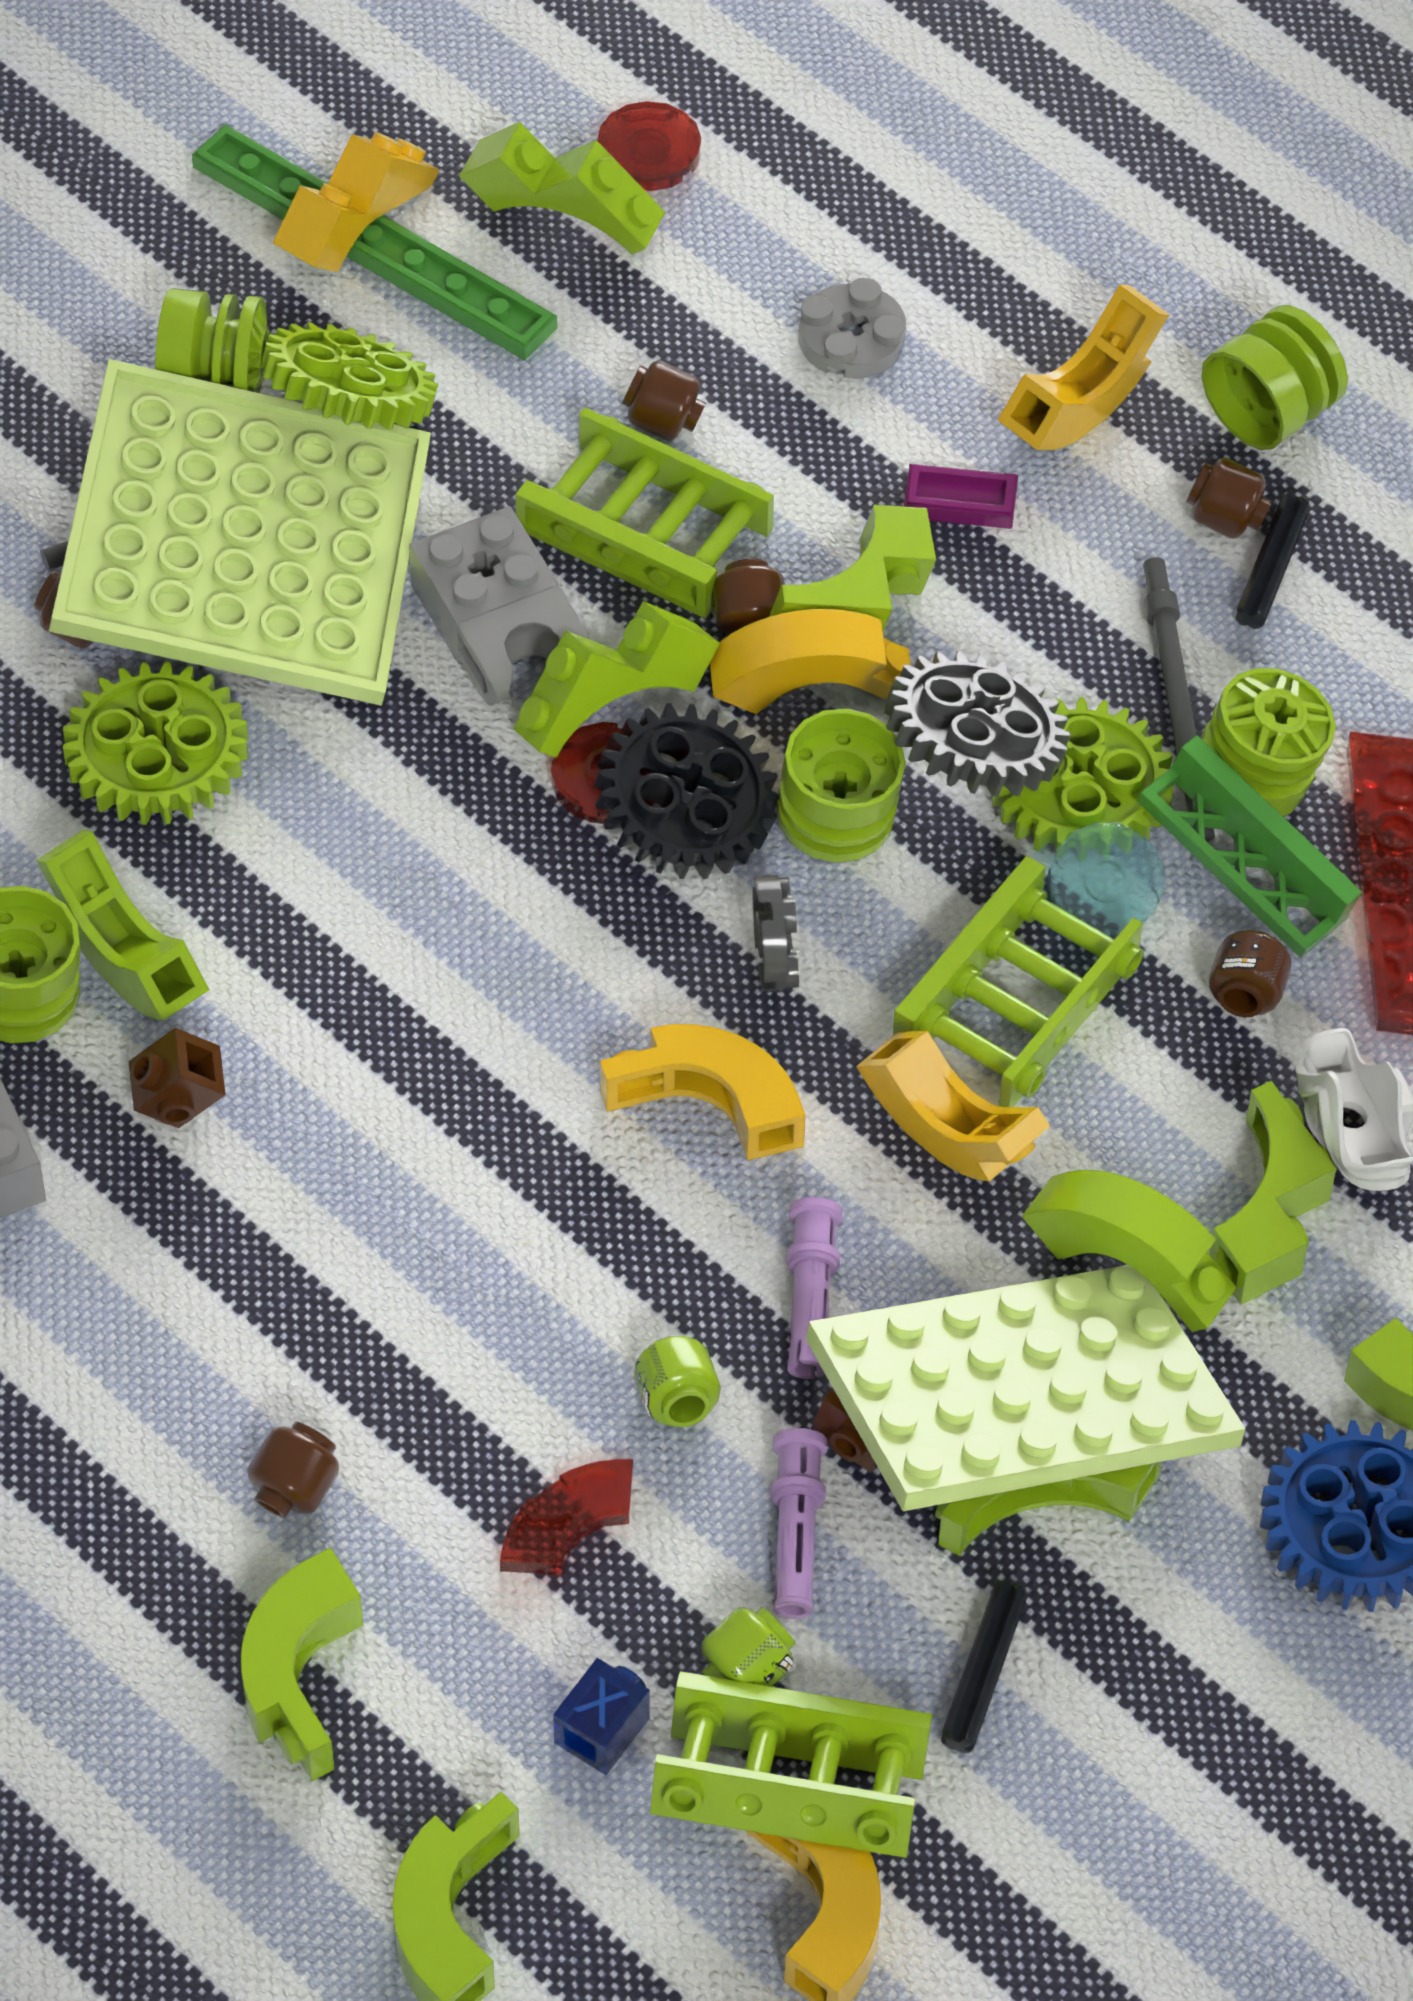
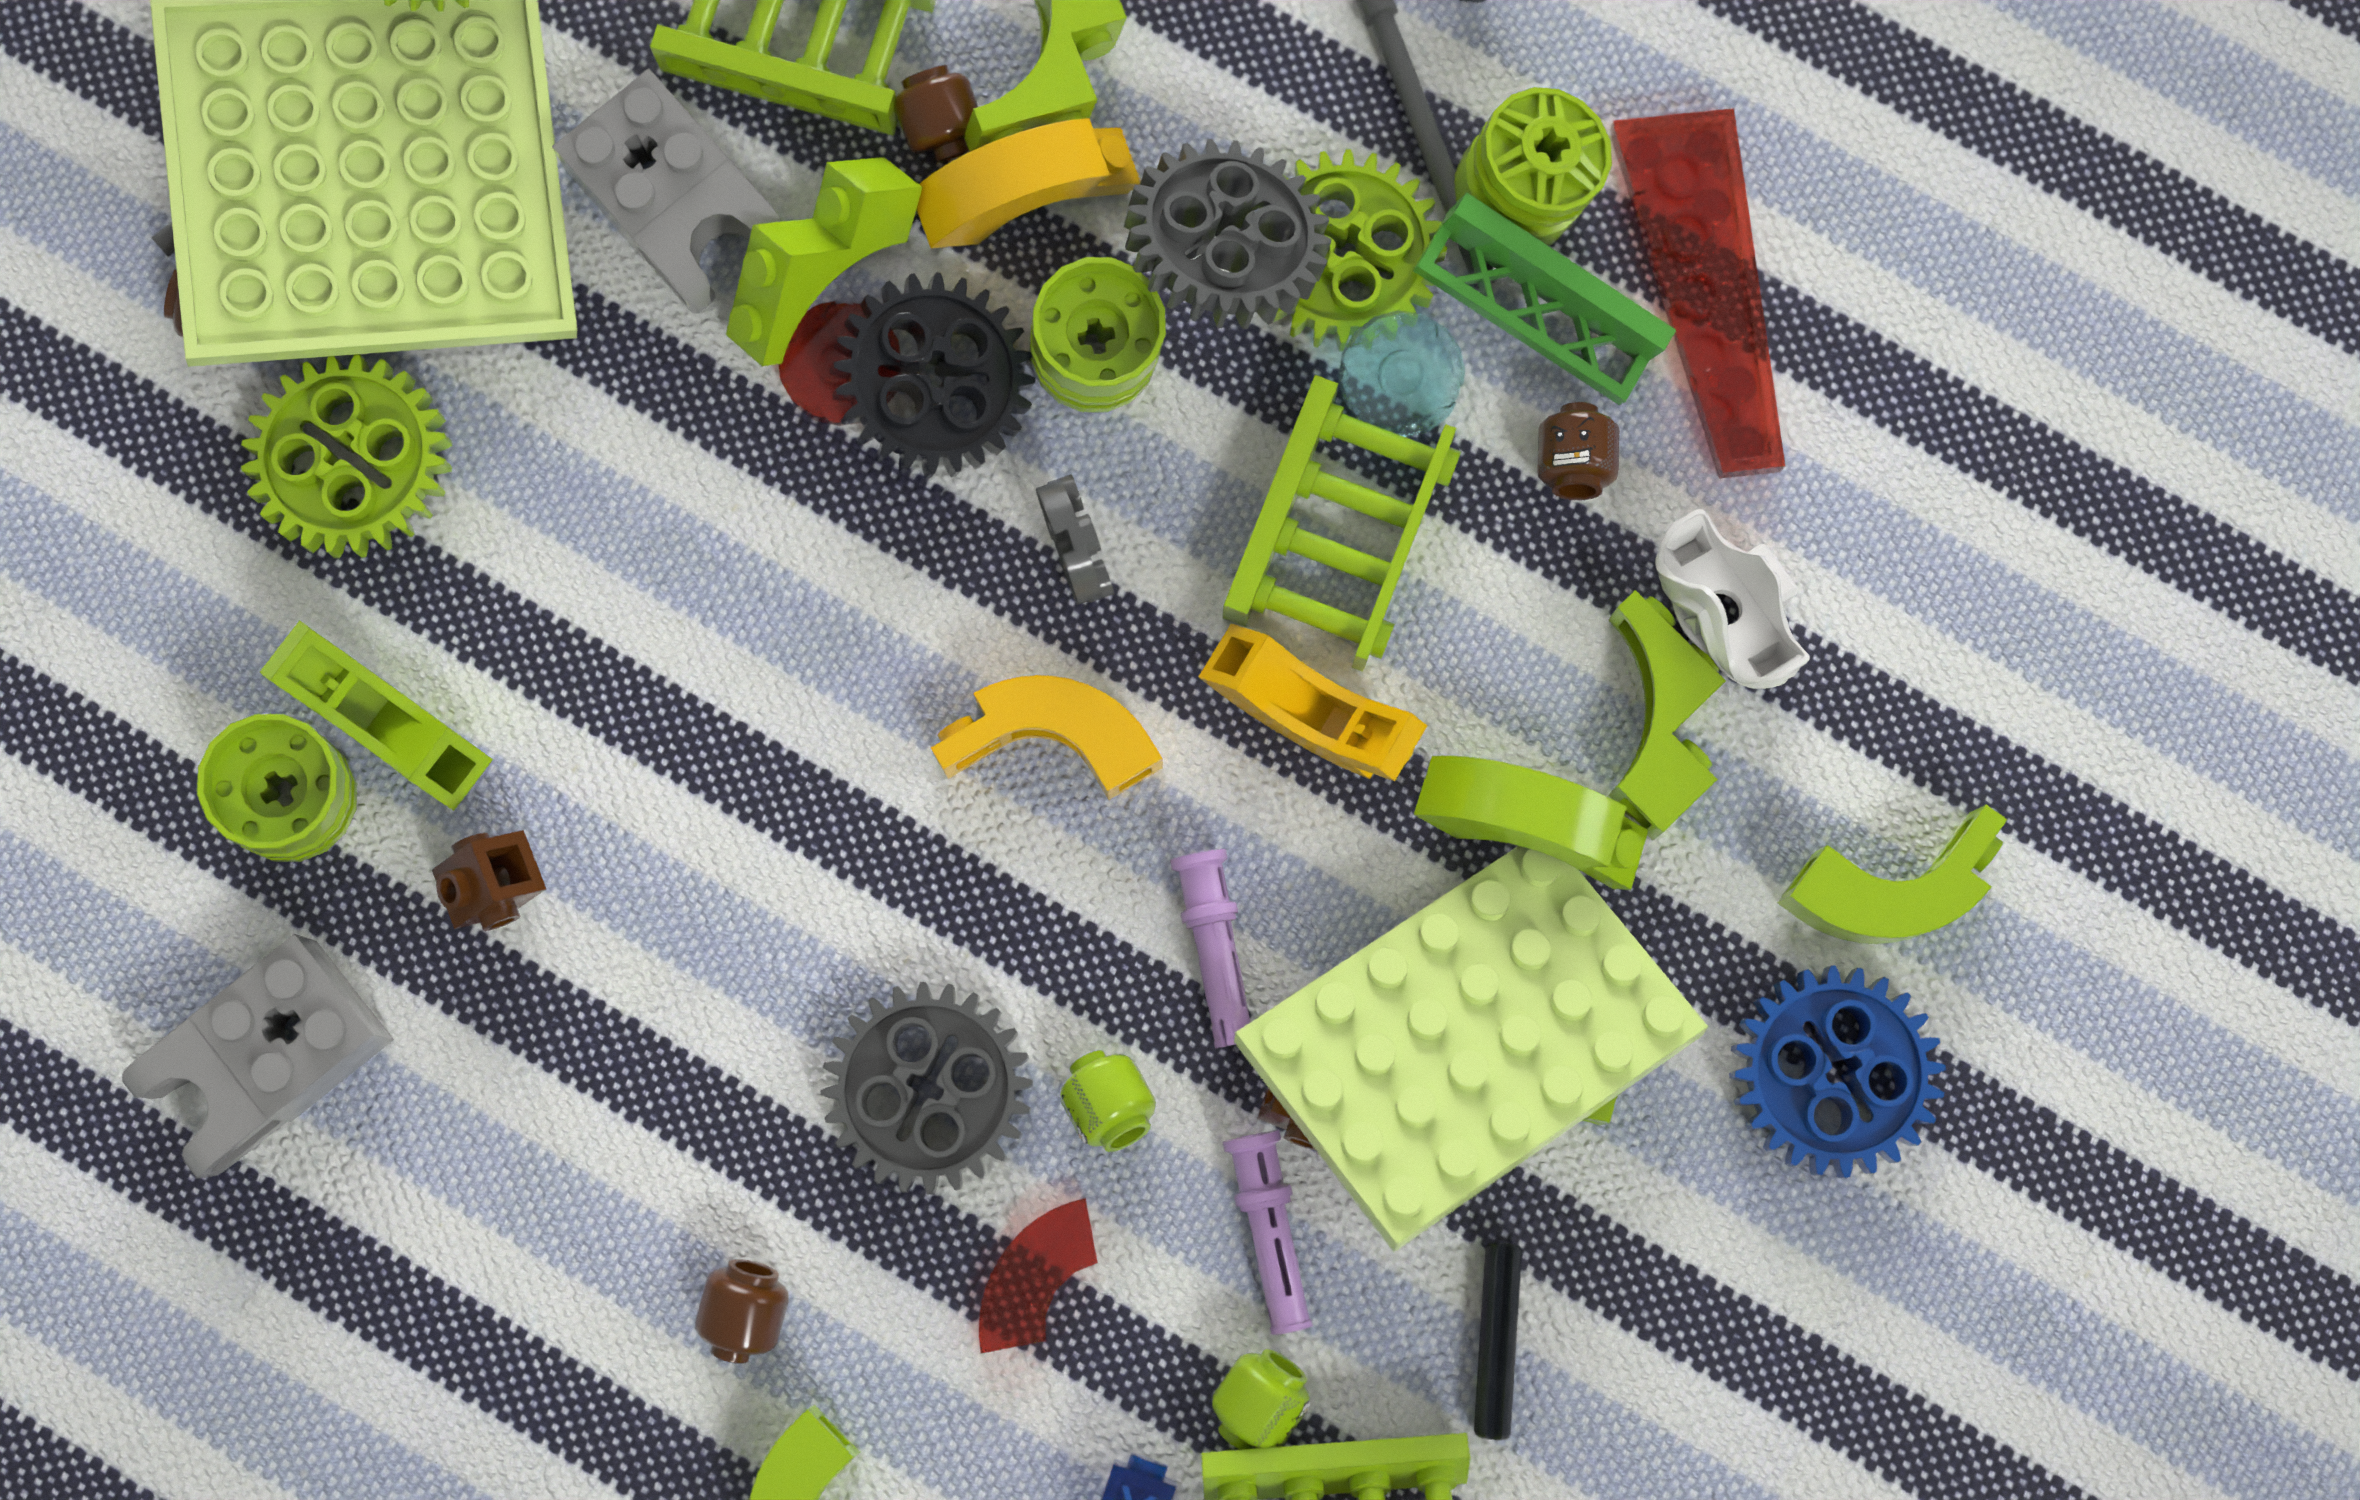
camera: 15 degrees left, 25 degrees up
(515, 1335) = (874, 1061): none -> dark grey gear

